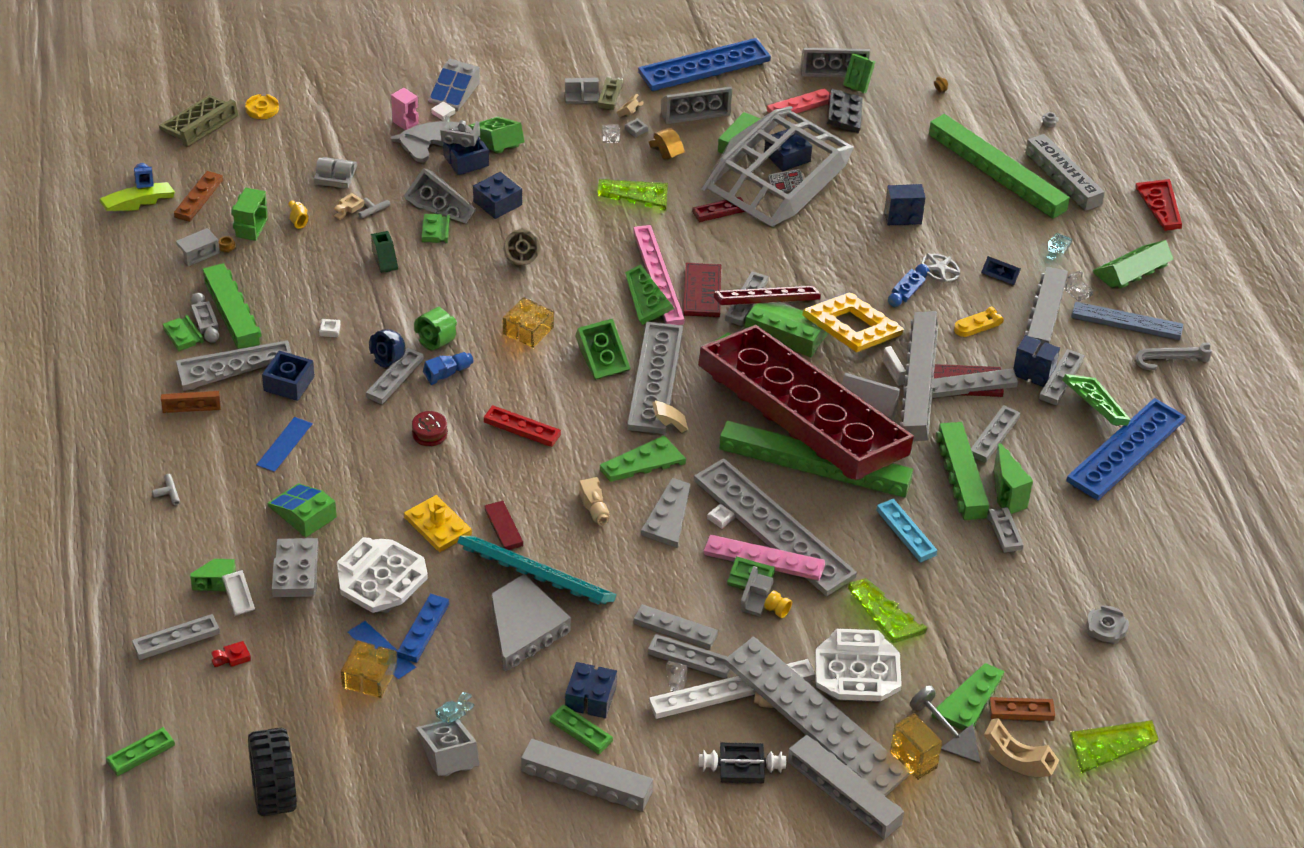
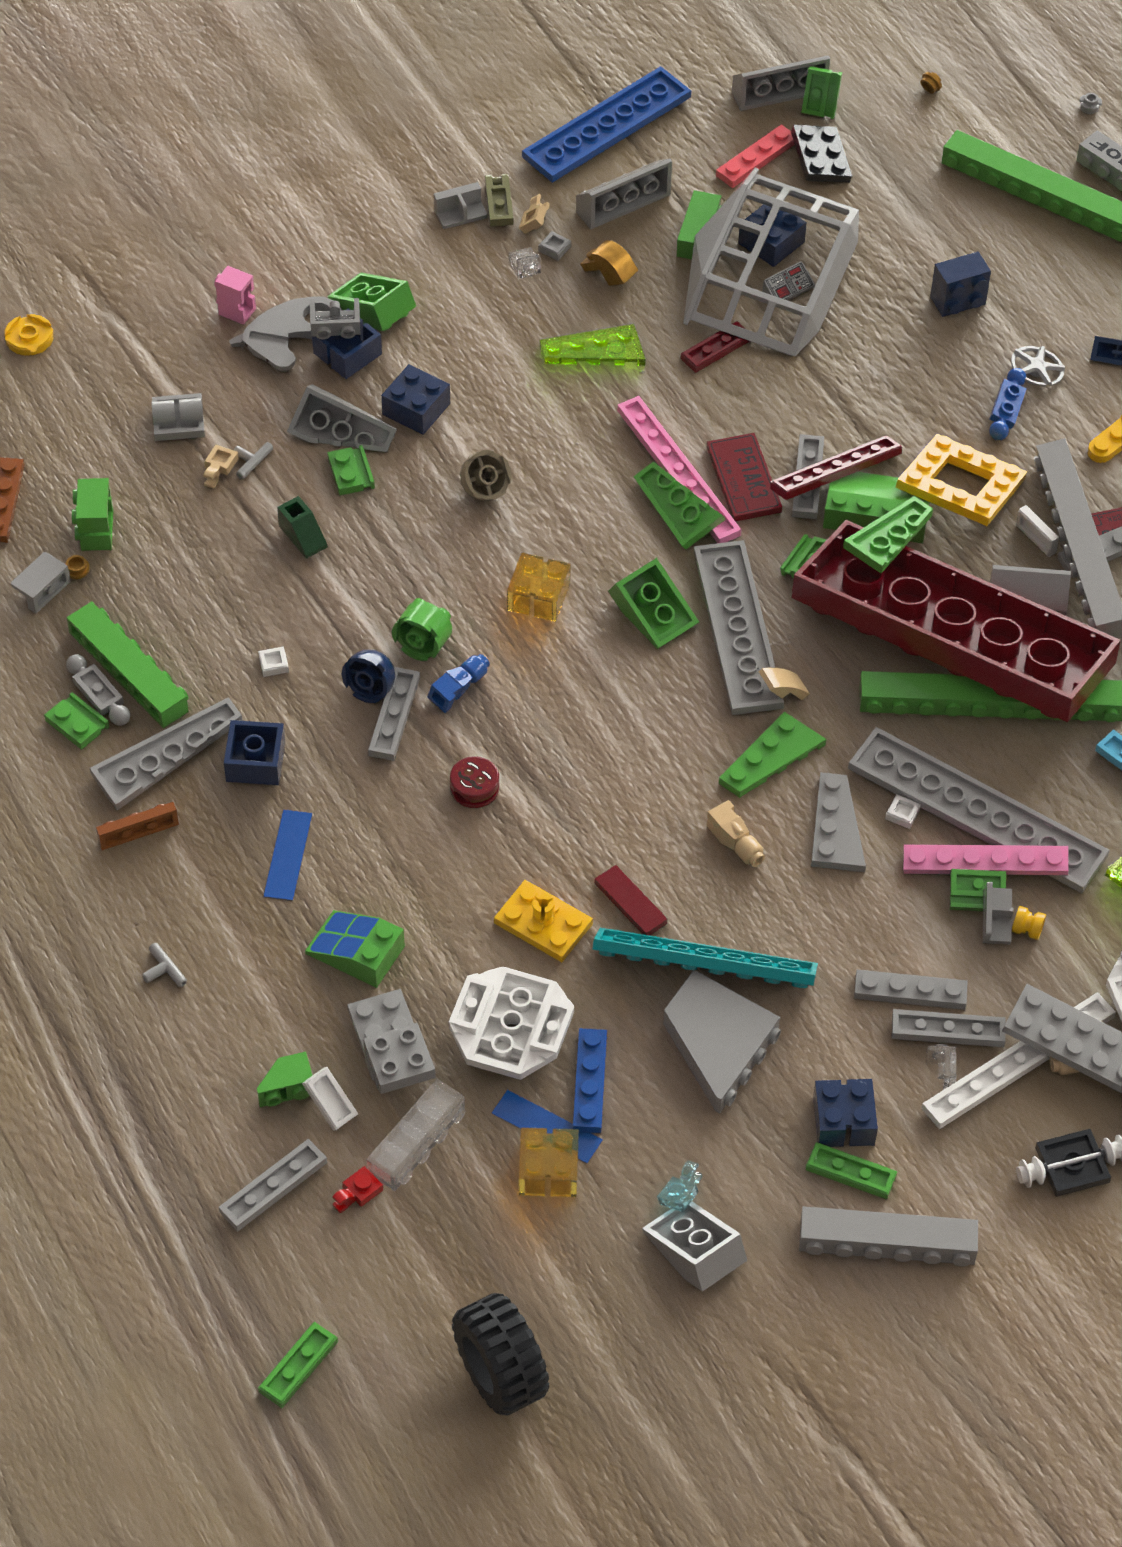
camera: 15 degrees left, 10 degrees up
(287, 630) = (416, 1135): none -> clear brick
(298, 214) = (156, 496): yellow piece -> none
(443, 110) = (283, 282): white tile -> none
(455, 83) = (283, 237): slope -> none
(522, 426) = (594, 746): red plate -> none
(777, 338) = (889, 534): none -> bright green wing

